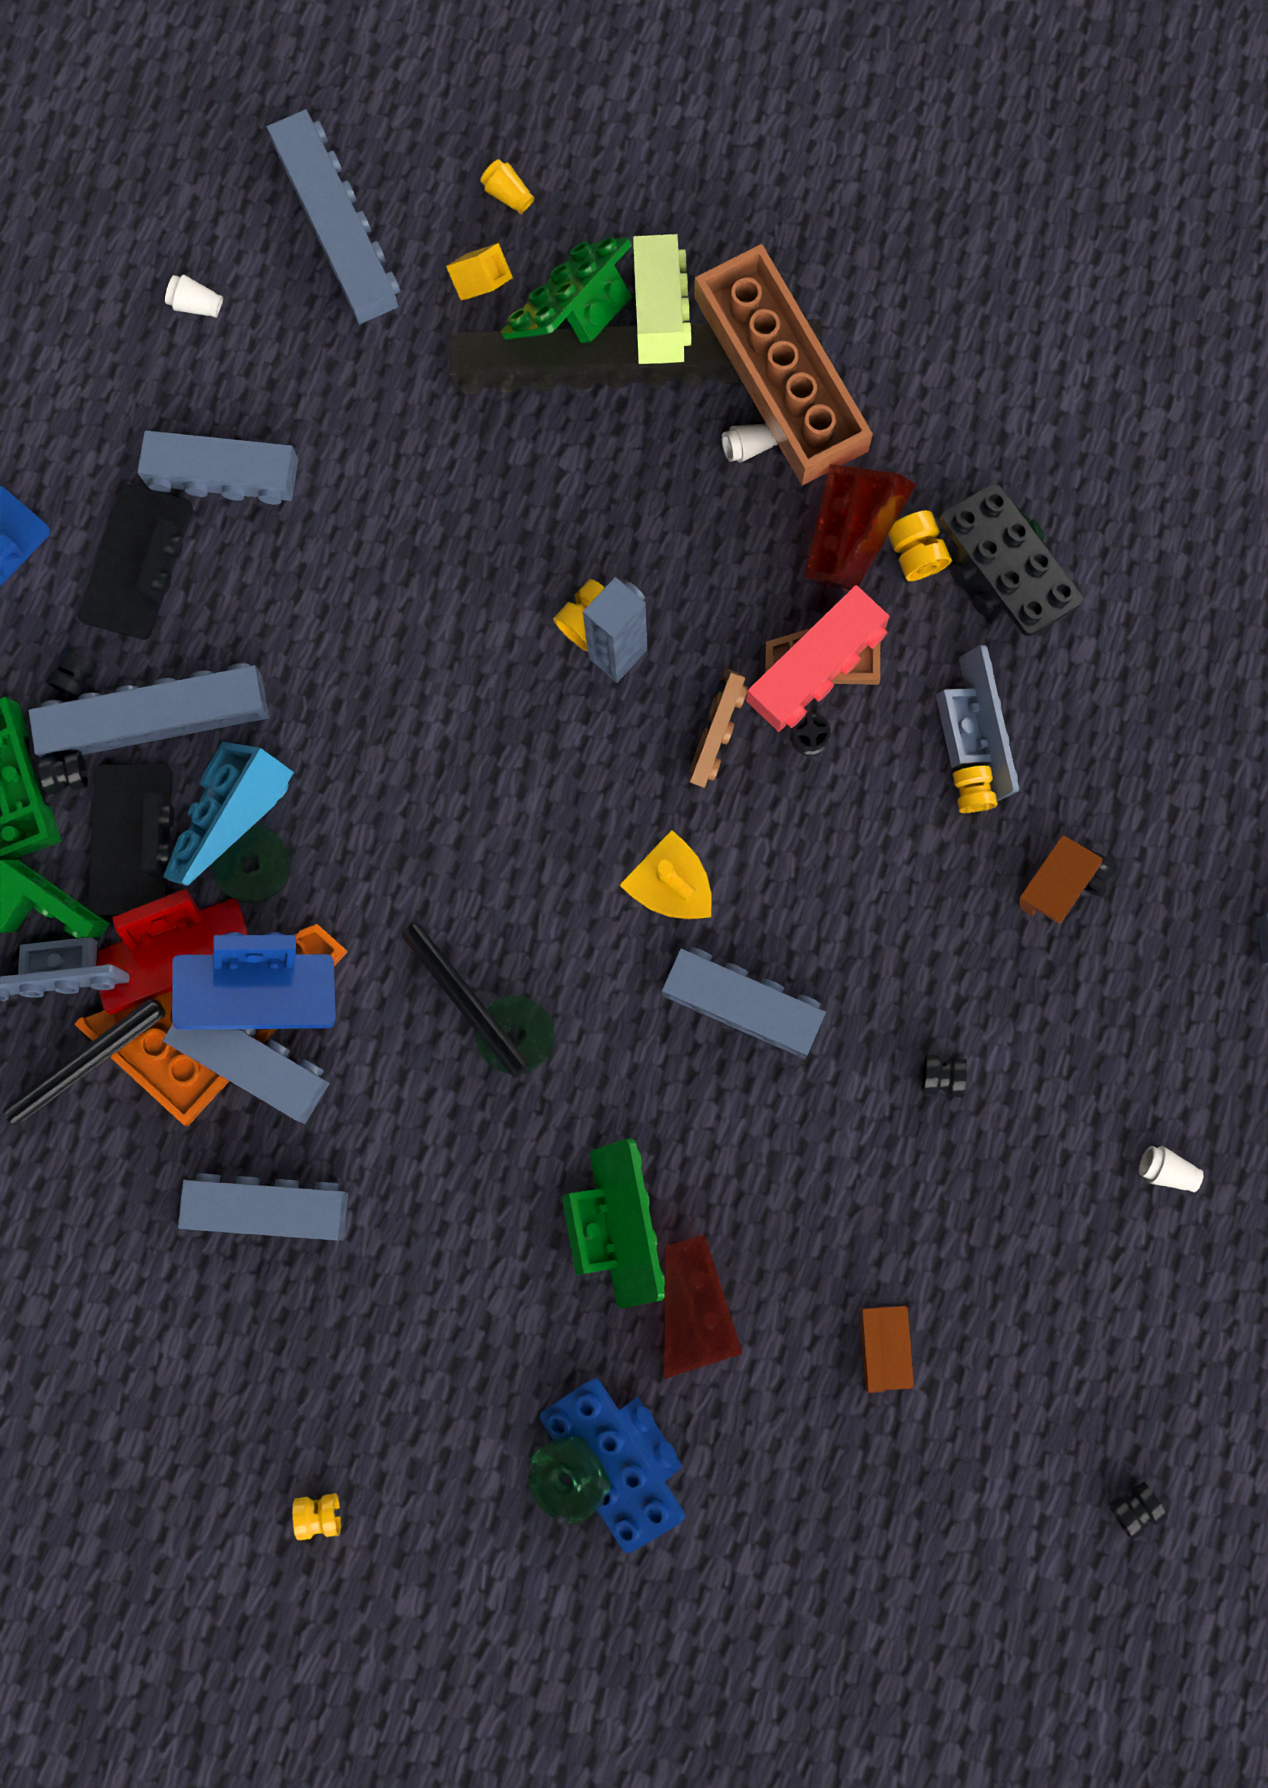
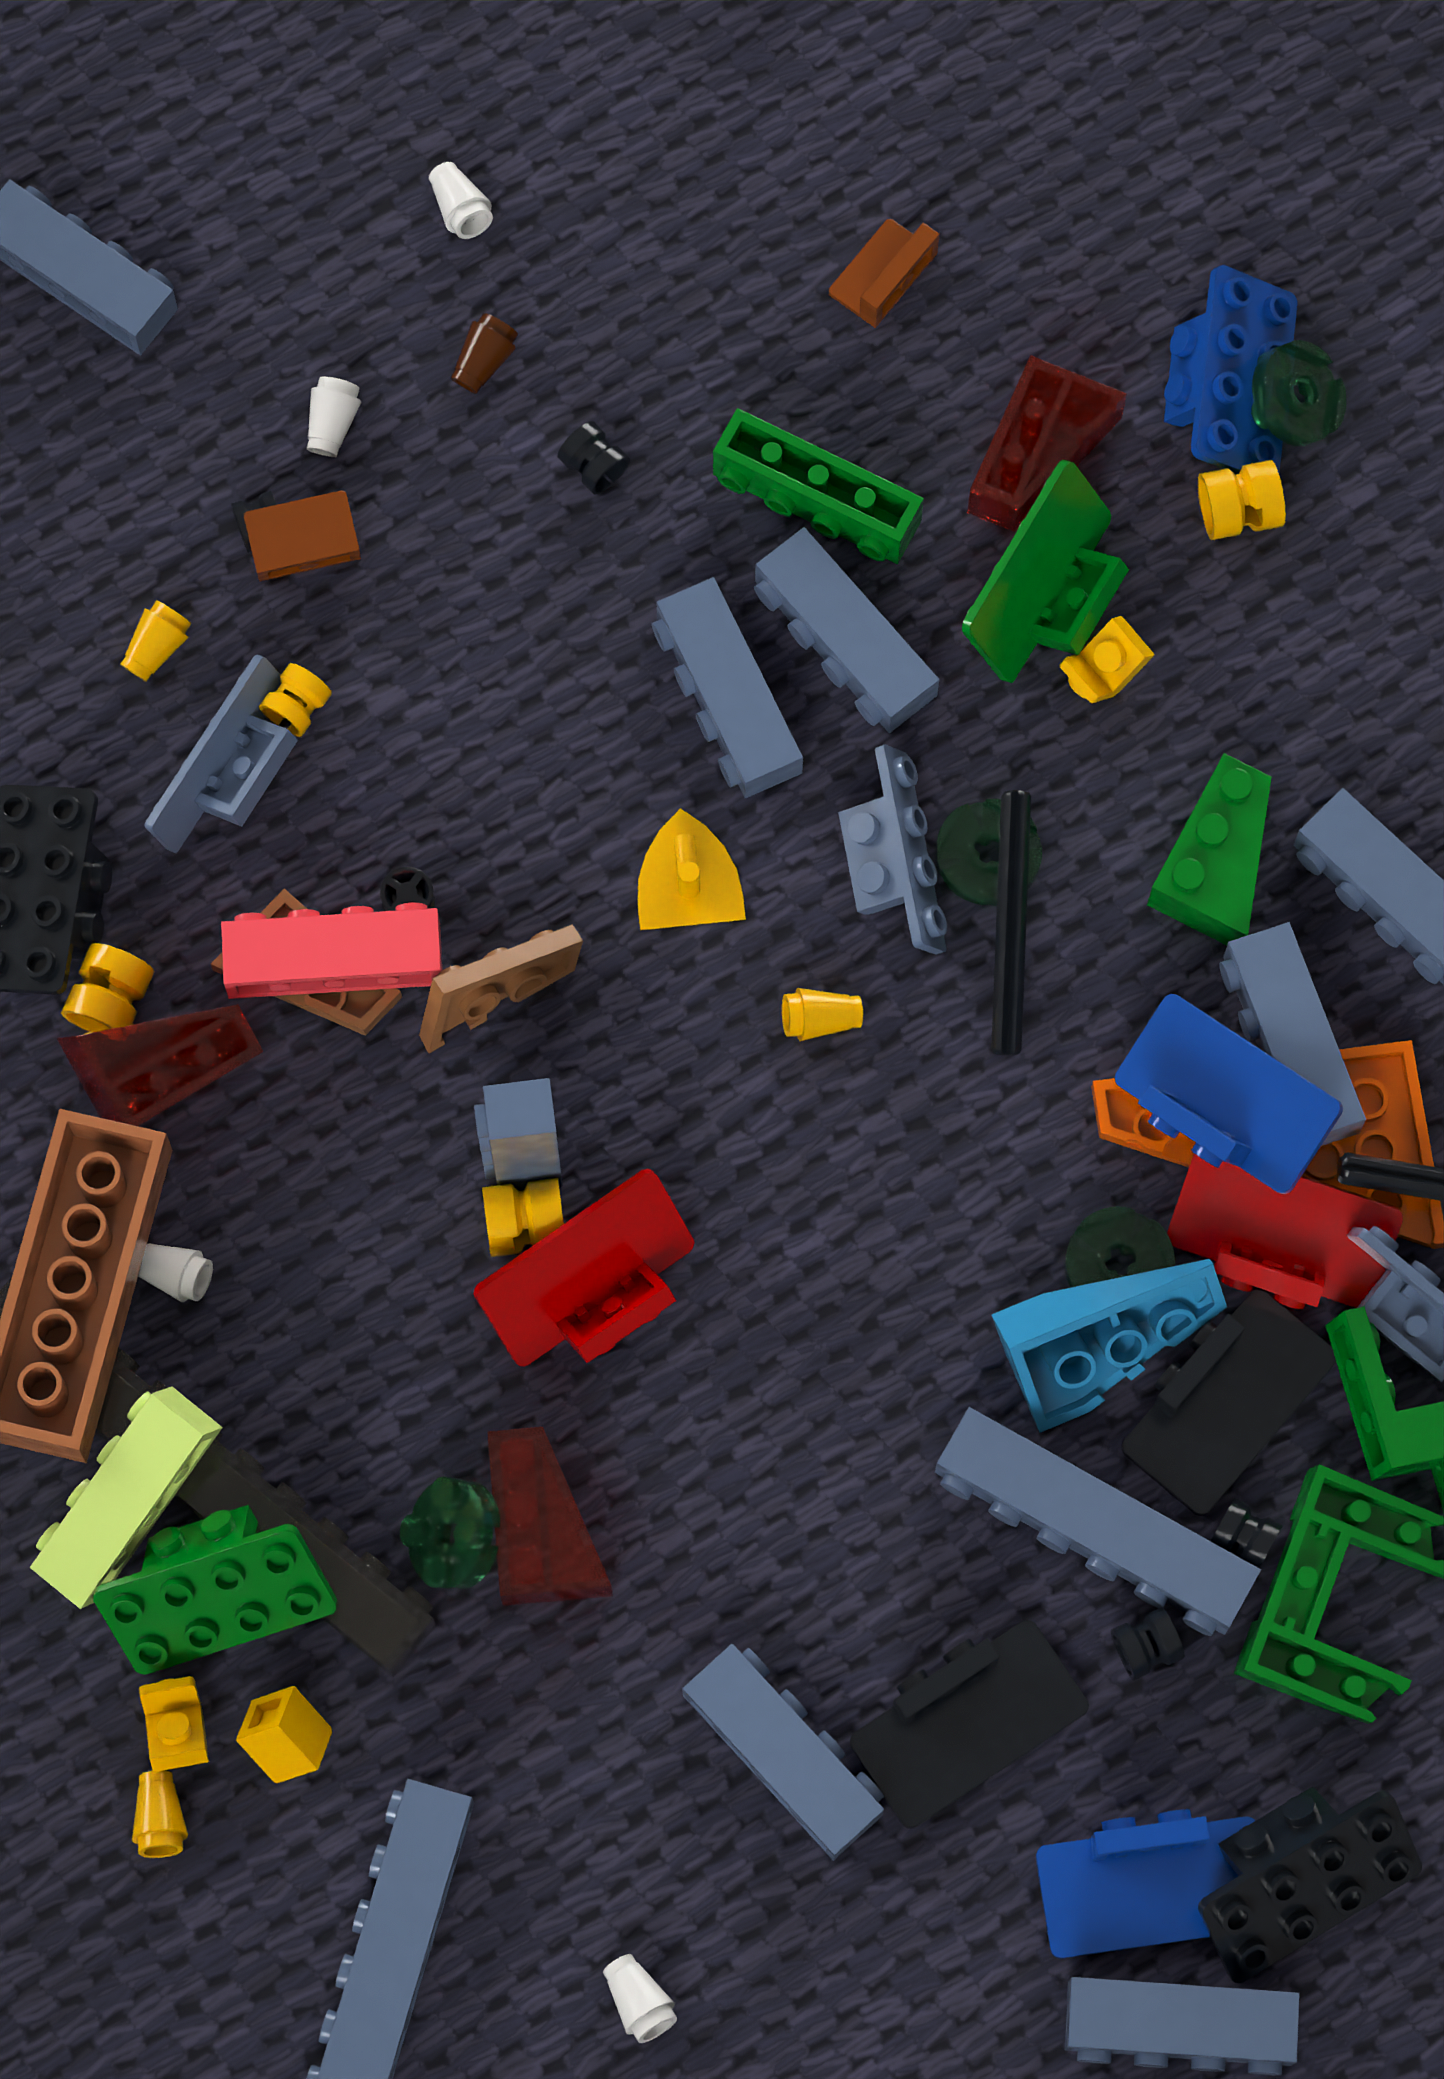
camera: 145 degrees left, 5 degrees down
(381, 1140) = (1217, 856): none -> green wedge
(441, 469) = (541, 1533): none -> clear red wedge
(479, 425) = (429, 1528): none -> clear green plate
(521, 612) = (590, 1276): none -> red bracket
(529, 862) = (819, 1013): none -> yellow cone
(536, 230) = (174, 1723): none -> yellow bracket
(541, 1205) = (1107, 662): none -> yellow bracket
(546, 1379) = (1241, 499): none -> yellow wheel
(567, 987) = (890, 852): none -> sand blue bracket
(708, 1095) = (845, 630): none -> sand blue brick
(800, 1165) = (817, 487): none -> green brick
(1066, 1086) = (483, 352): none -> reddish brown cone
(1083, 758) = (155, 640): none -> yellow cone
(1115, 972) = (331, 414): none -> white cone

